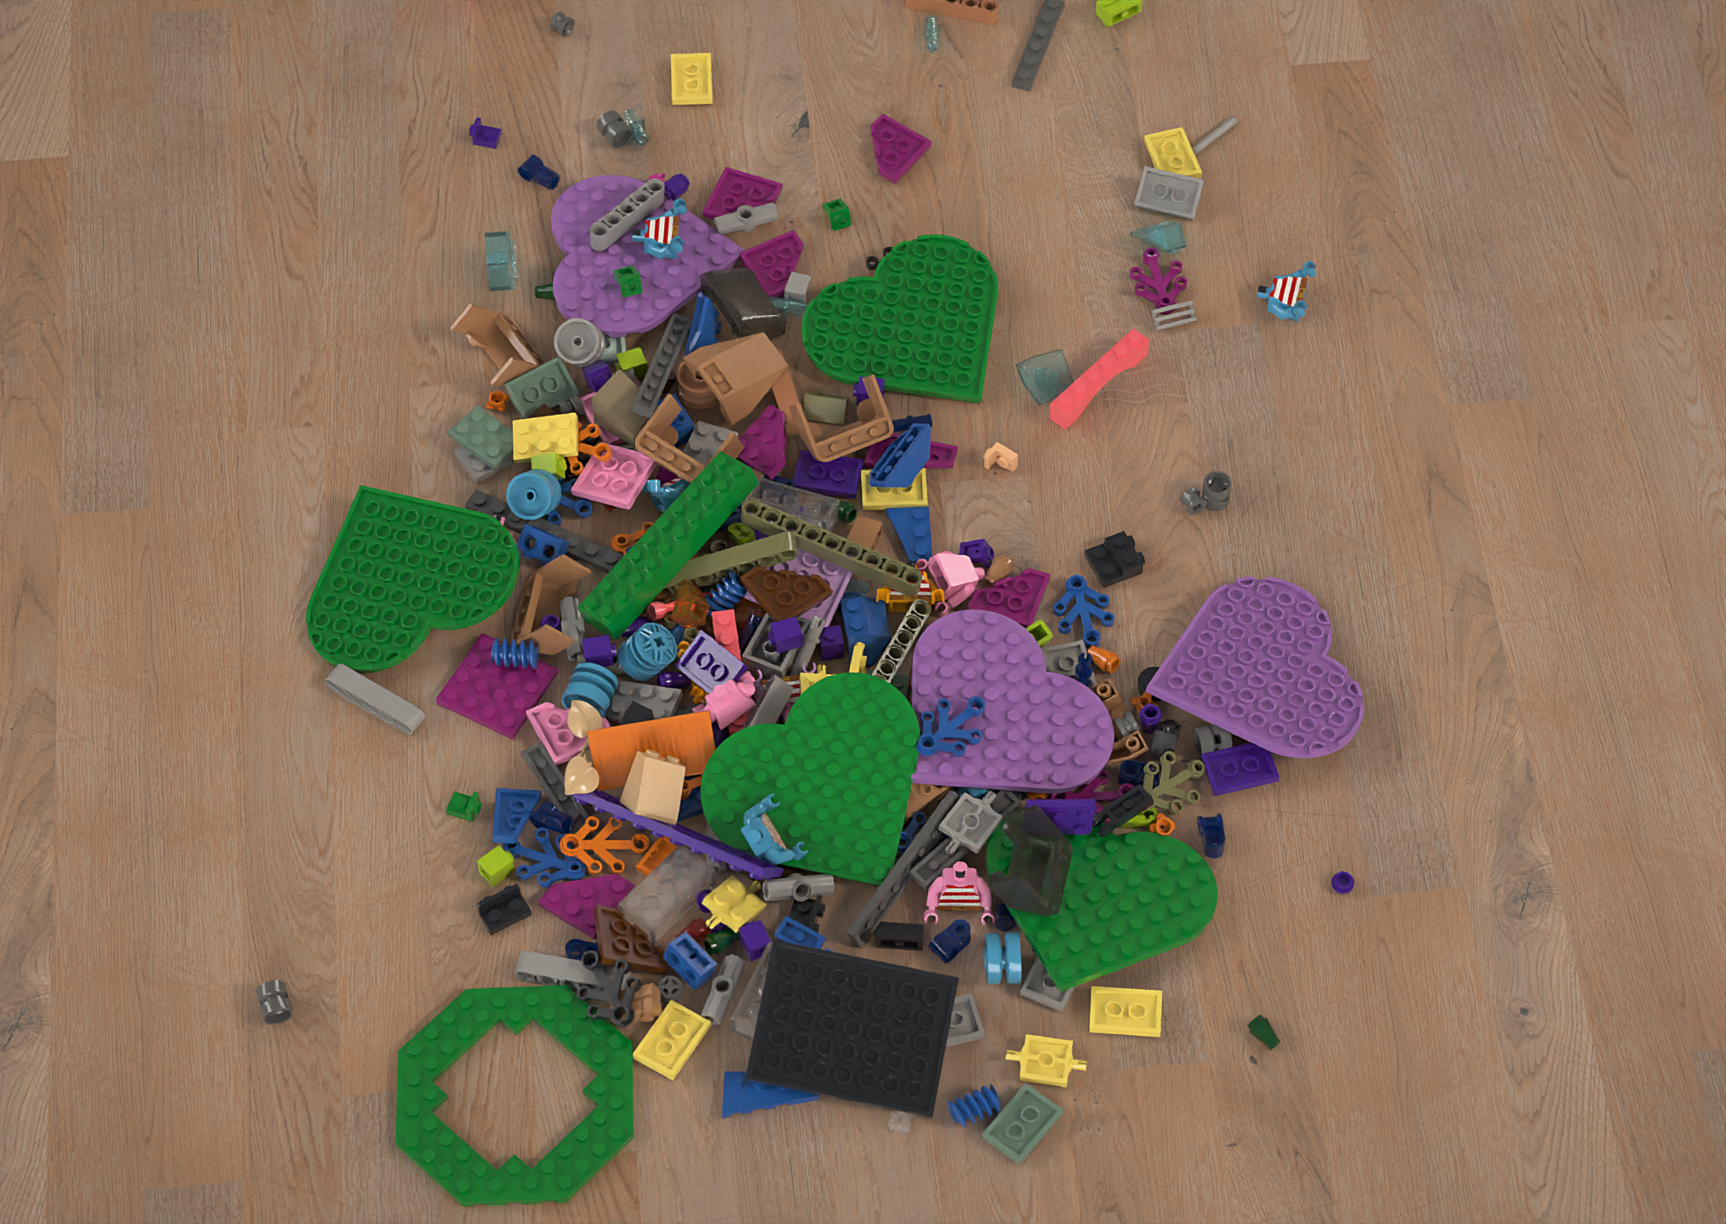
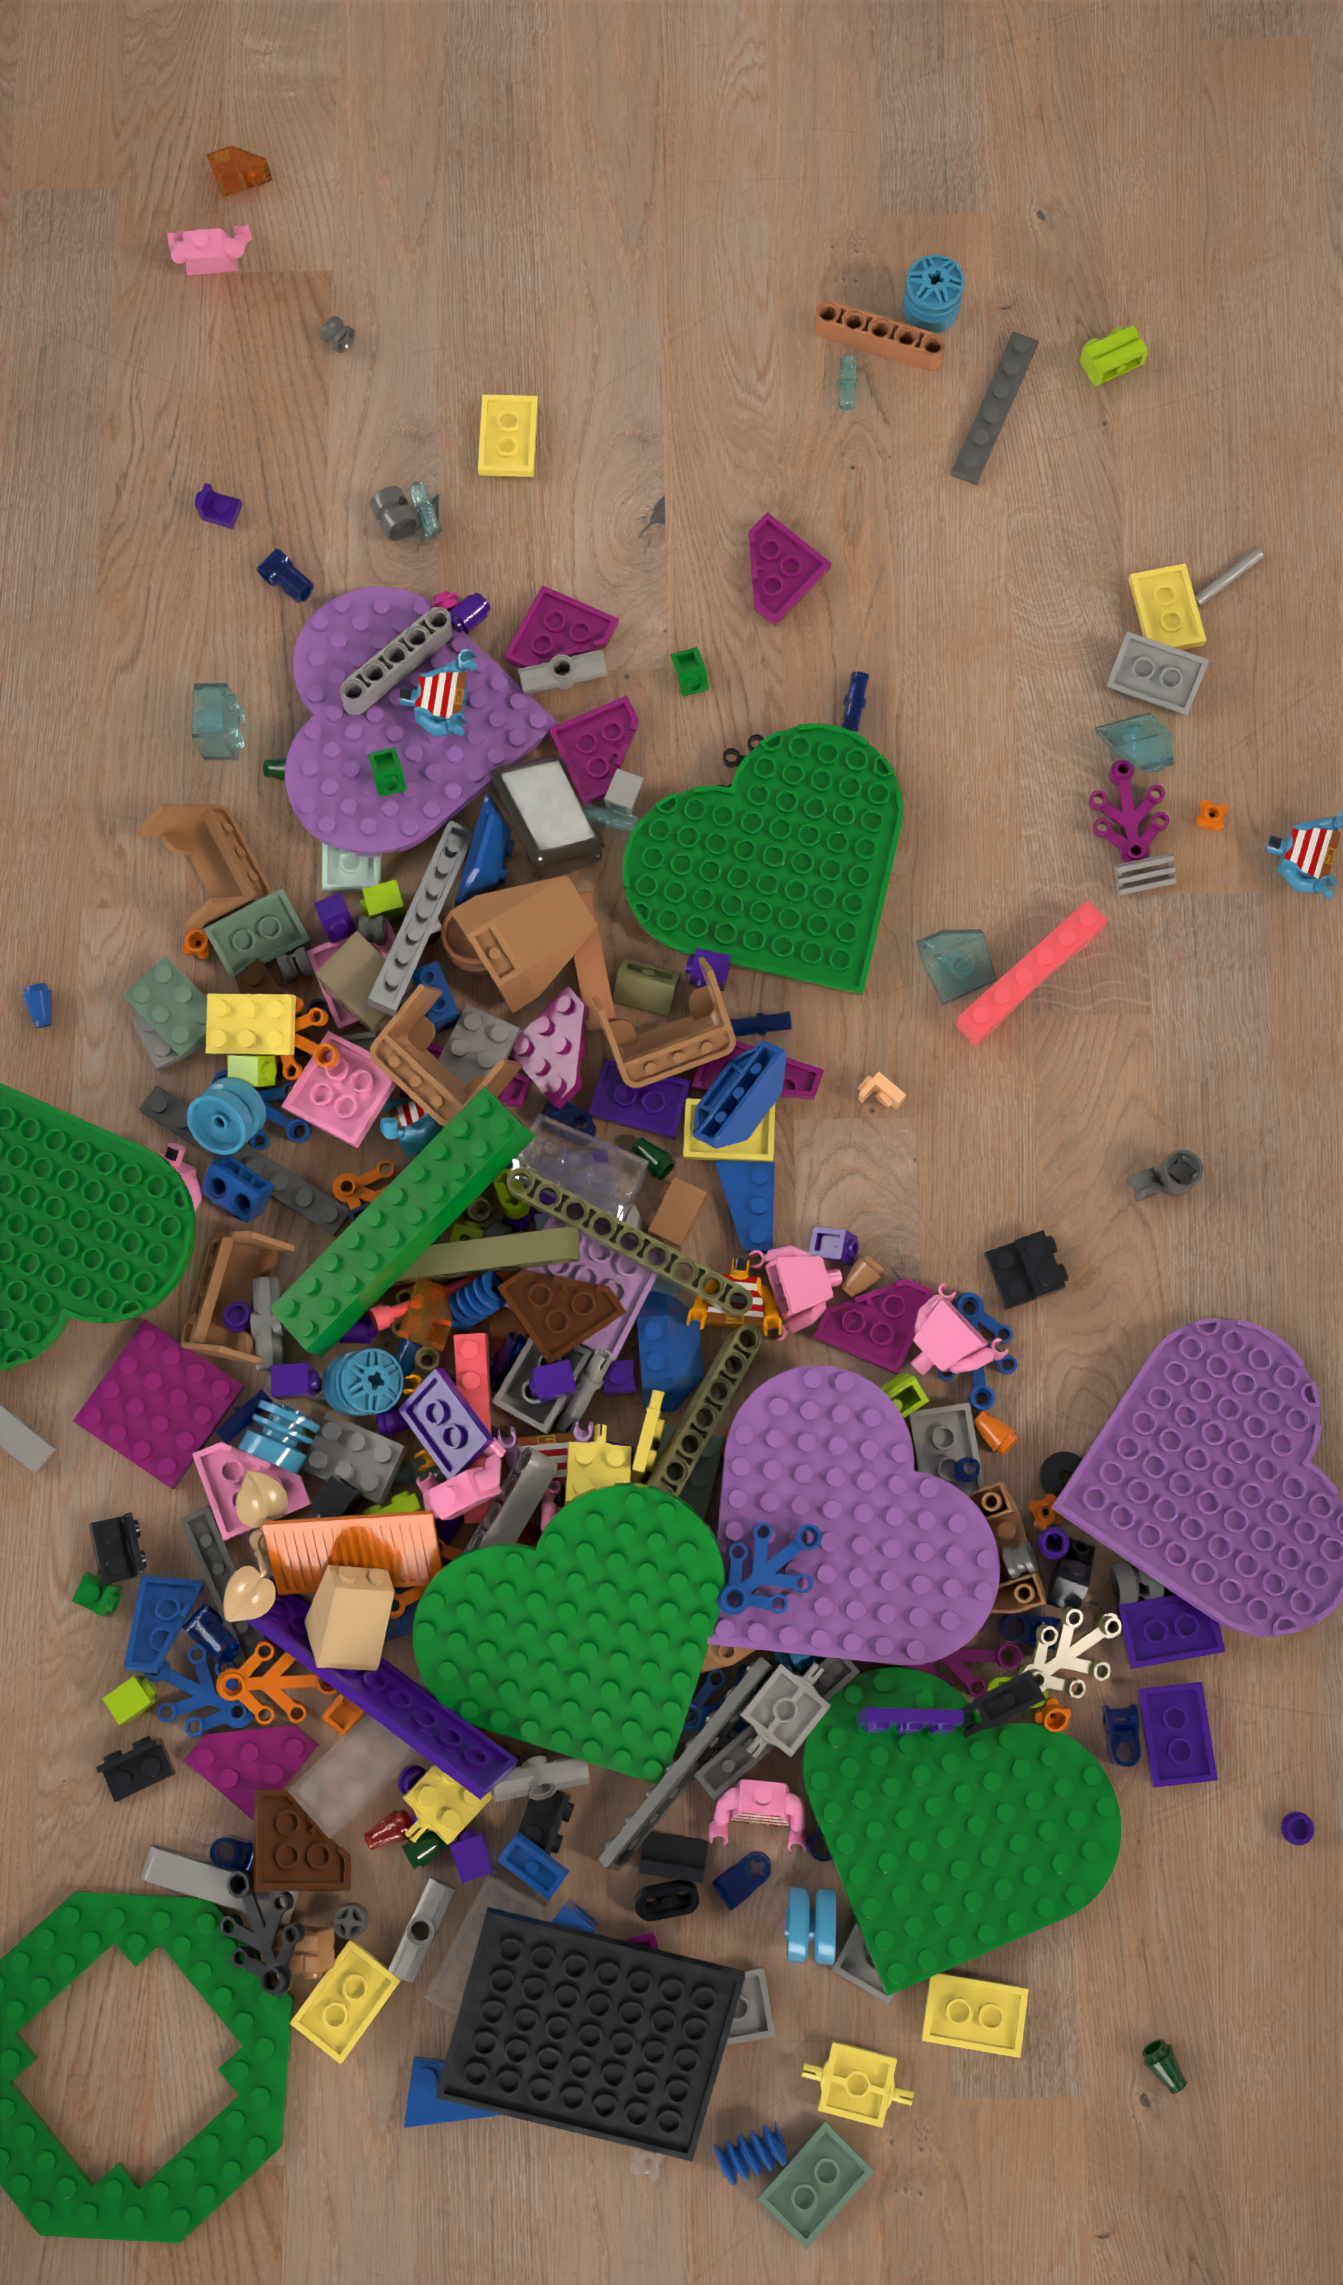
camera: 10 degrees right, 20 degrees up
(385, 445) = (39, 1004): none -> blue cone
(478, 773) = (117, 1549): none -> black bracket
(514, 653) = (181, 1371): blue piece -> none
(557, 689) = (242, 1417): none -> clear blue pin
(568, 337) = (312, 868): light grey wheel -> none
(690, 961) = (379, 1886): blue brick -> none
(764, 837) = (492, 1719): dark azure torso -> none
(897, 955) = (667, 1901): none -> black plate
(957, 223) = (855, 701): none -> clear blue pin
(1036, 865) = (869, 1803): clear smoke windscreen -> none
(1066, 600) = (949, 1338): none -> bright pink torso
(1217, 278) = (1205, 821): none -> orange plate
(1251, 831) = (1177, 1734): none -> dark purple plate

